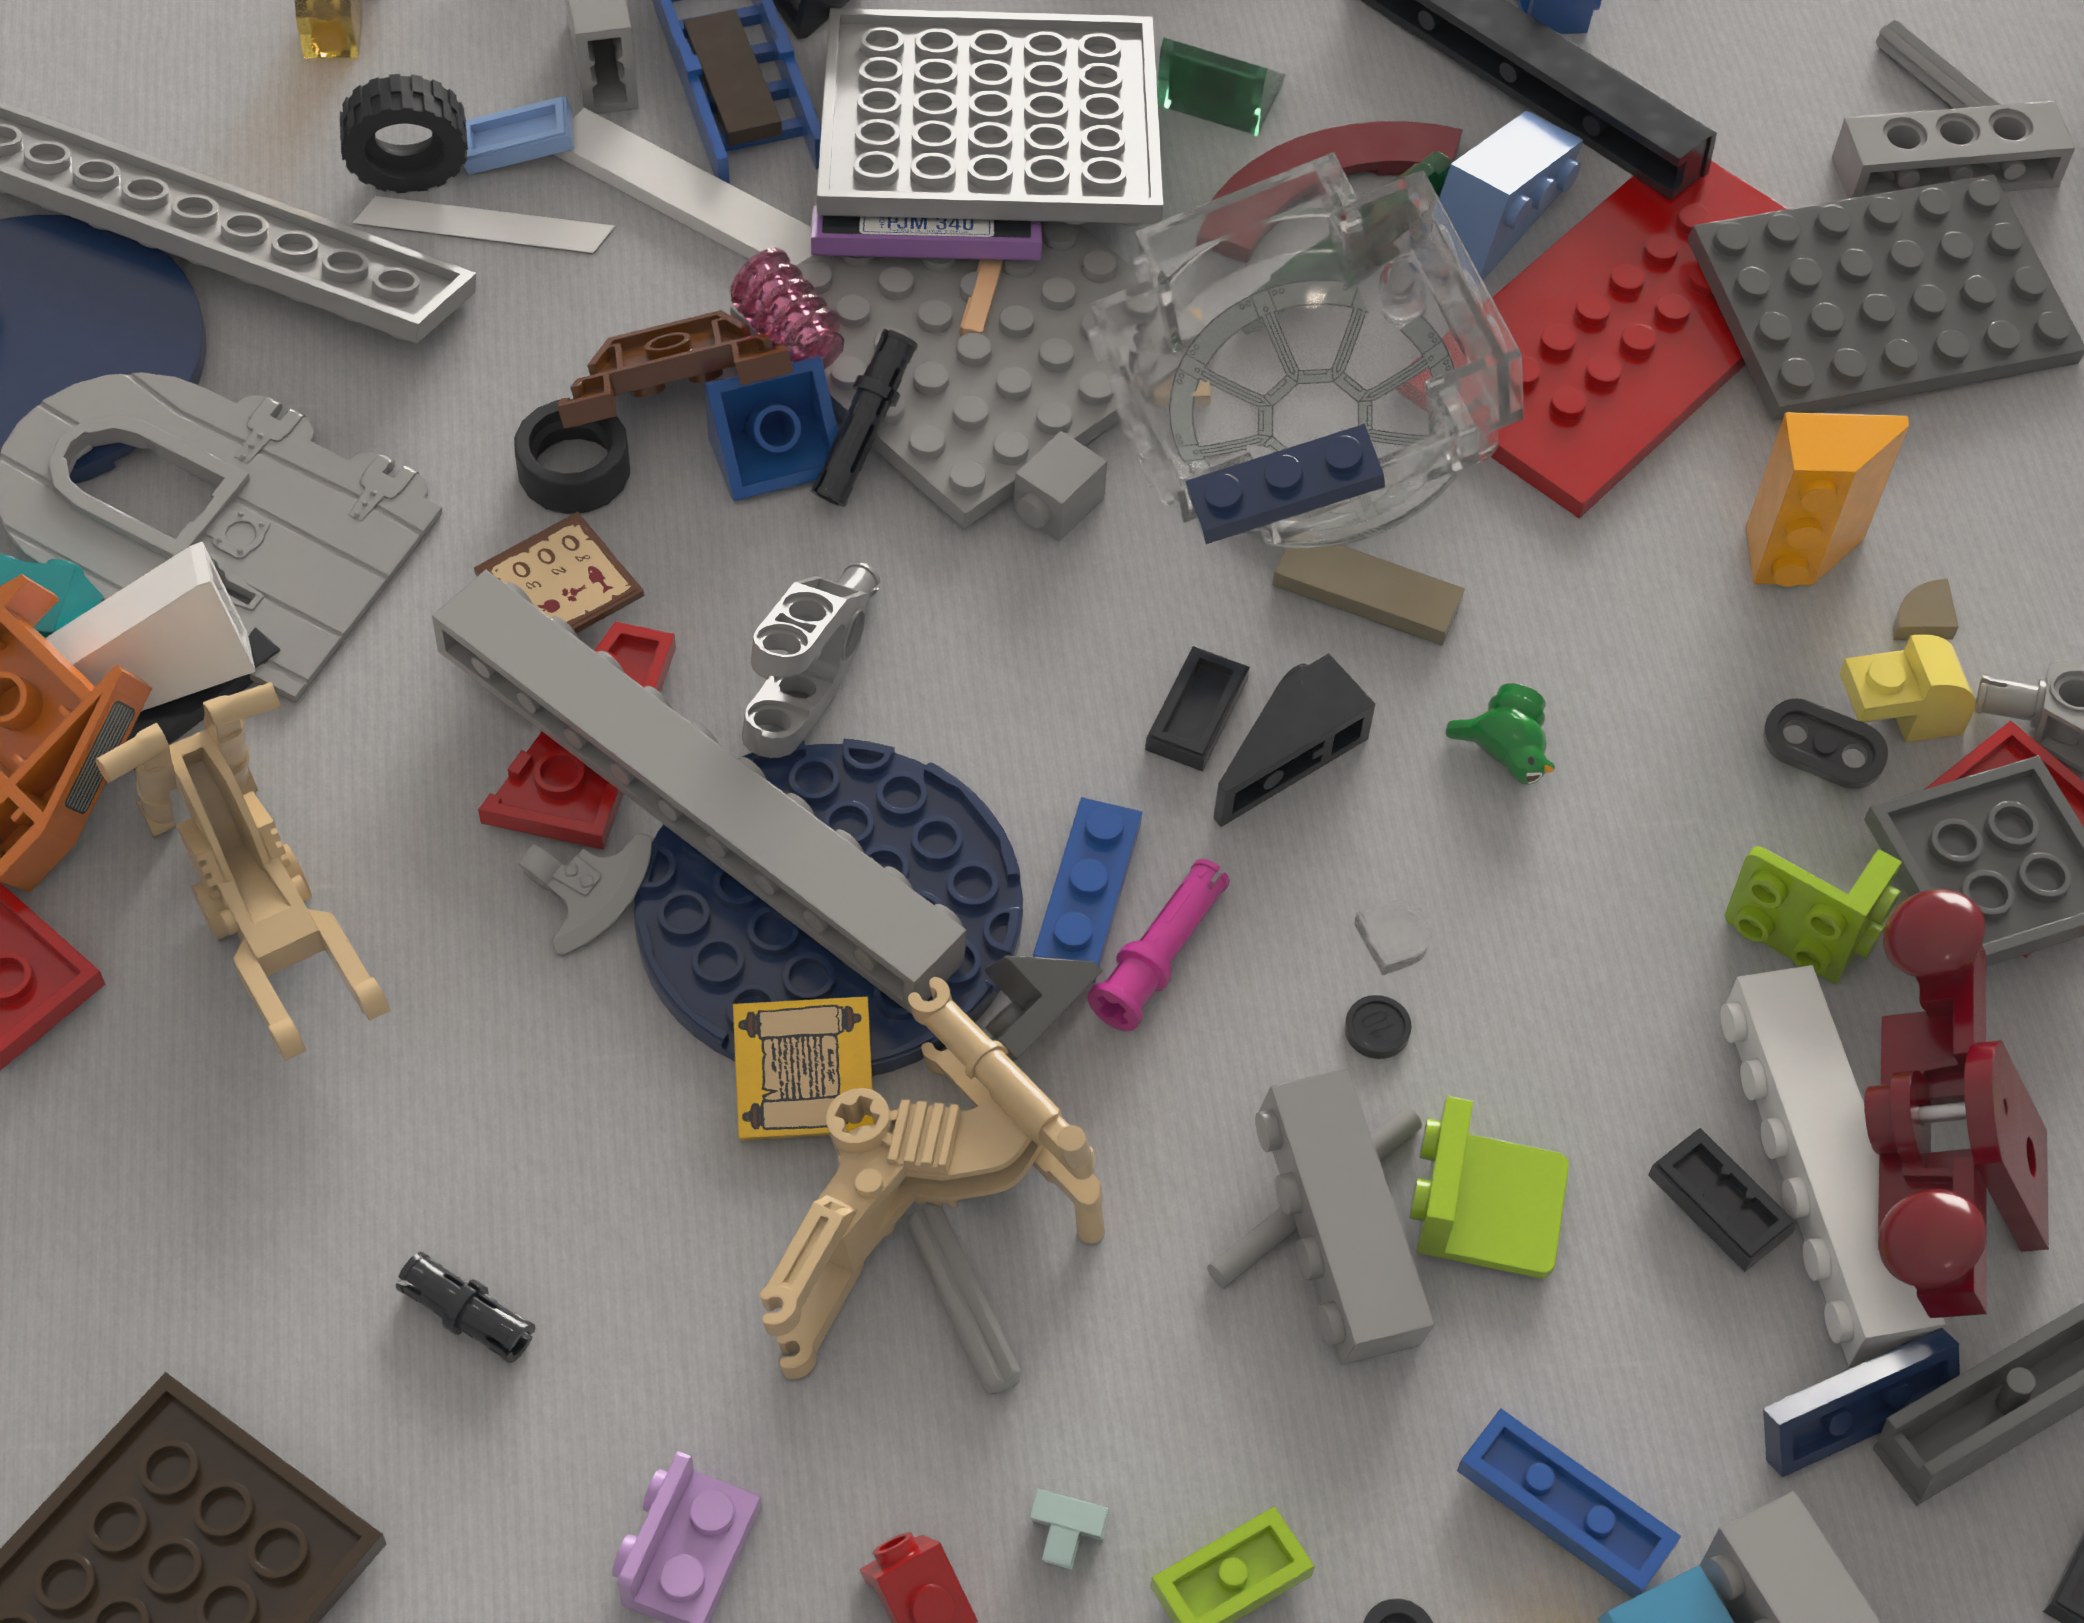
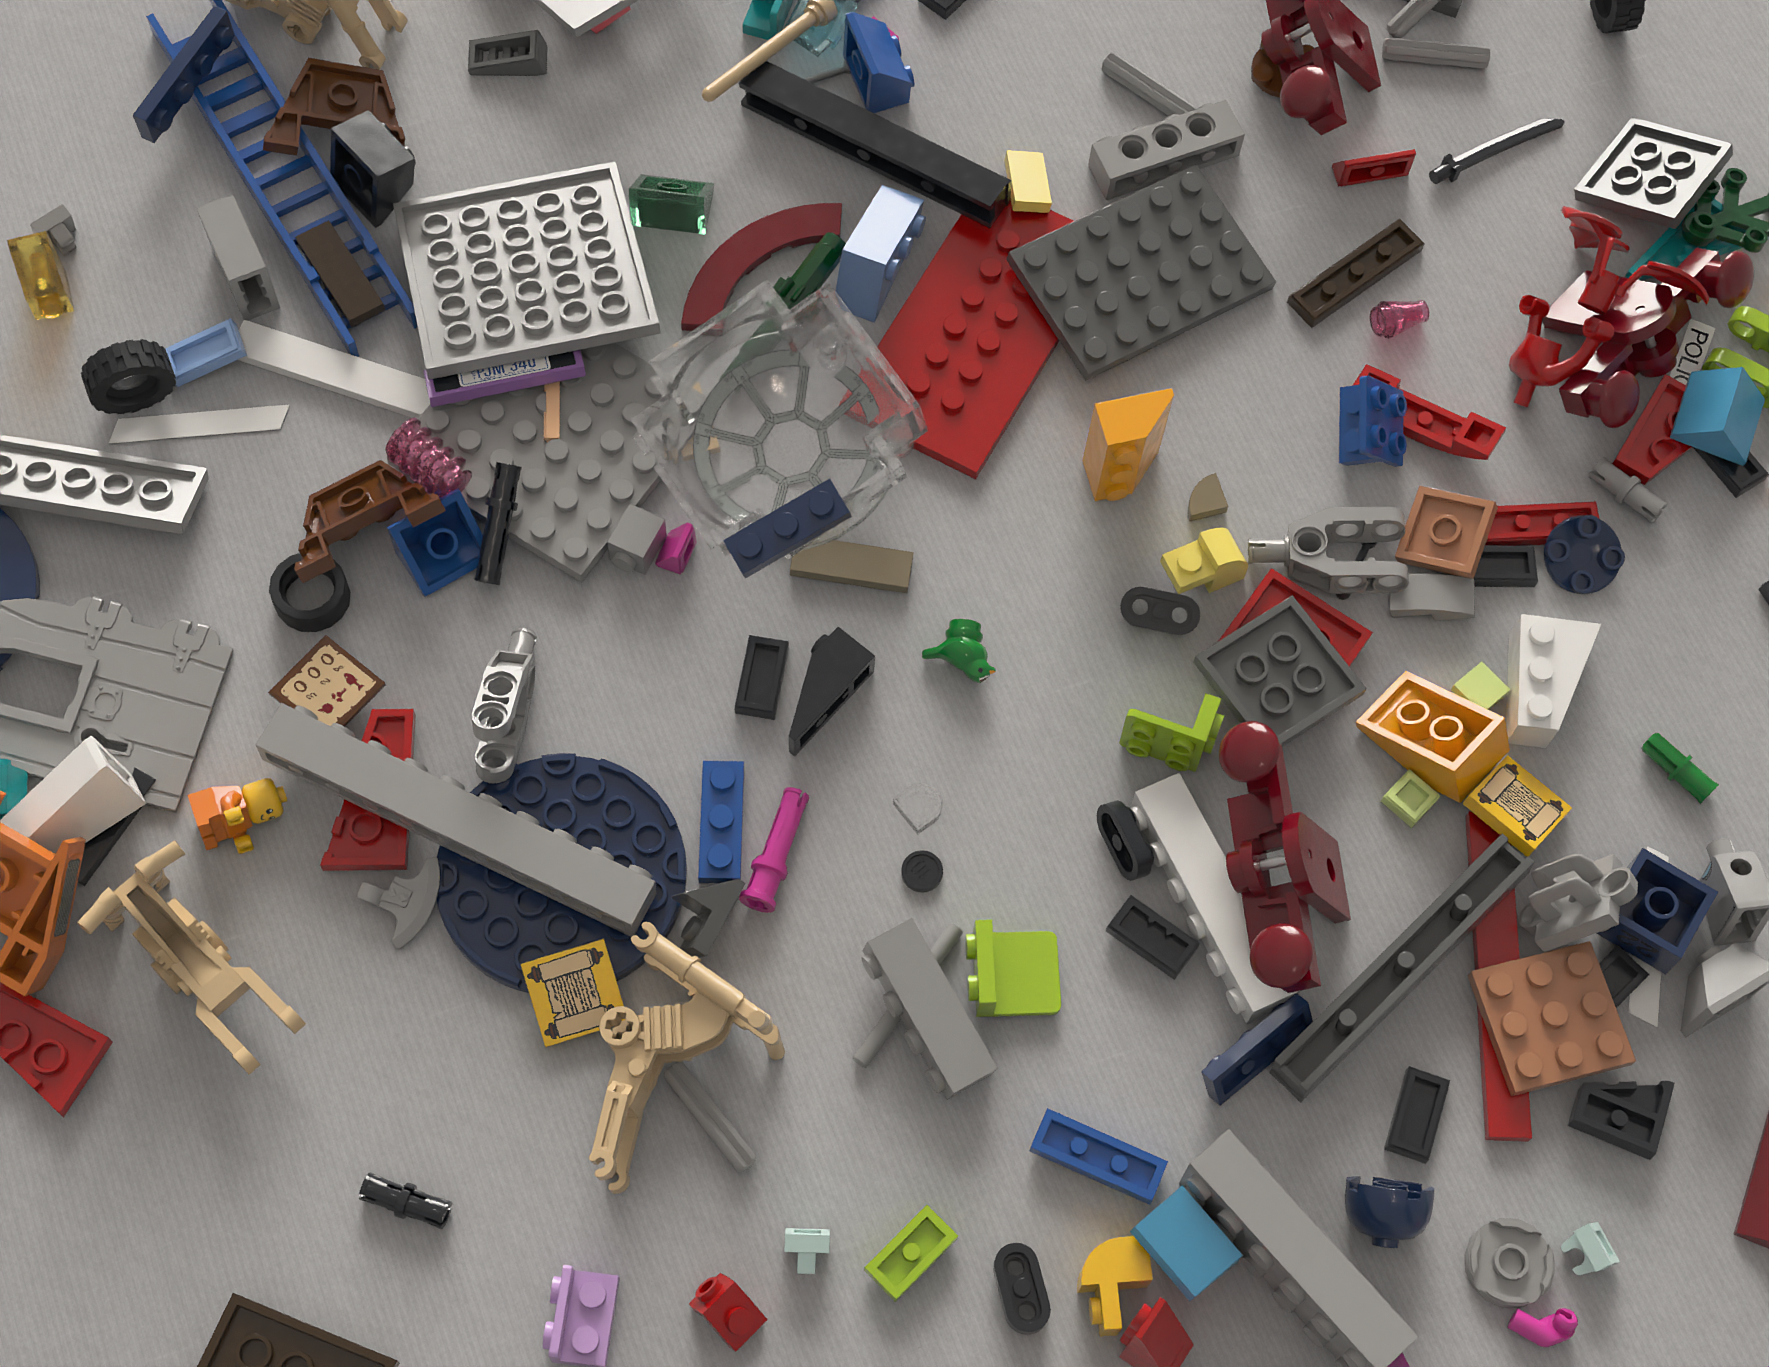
camera: 15 degrees left, 10 degrees up
(368, 710) = (228, 812): none -> piece
(1117, 513) = (677, 549): none -> dark pink slope
(1705, 1048) = (1124, 840): none -> black plate
(1740, 153) = (1028, 181): none -> light yellow tile

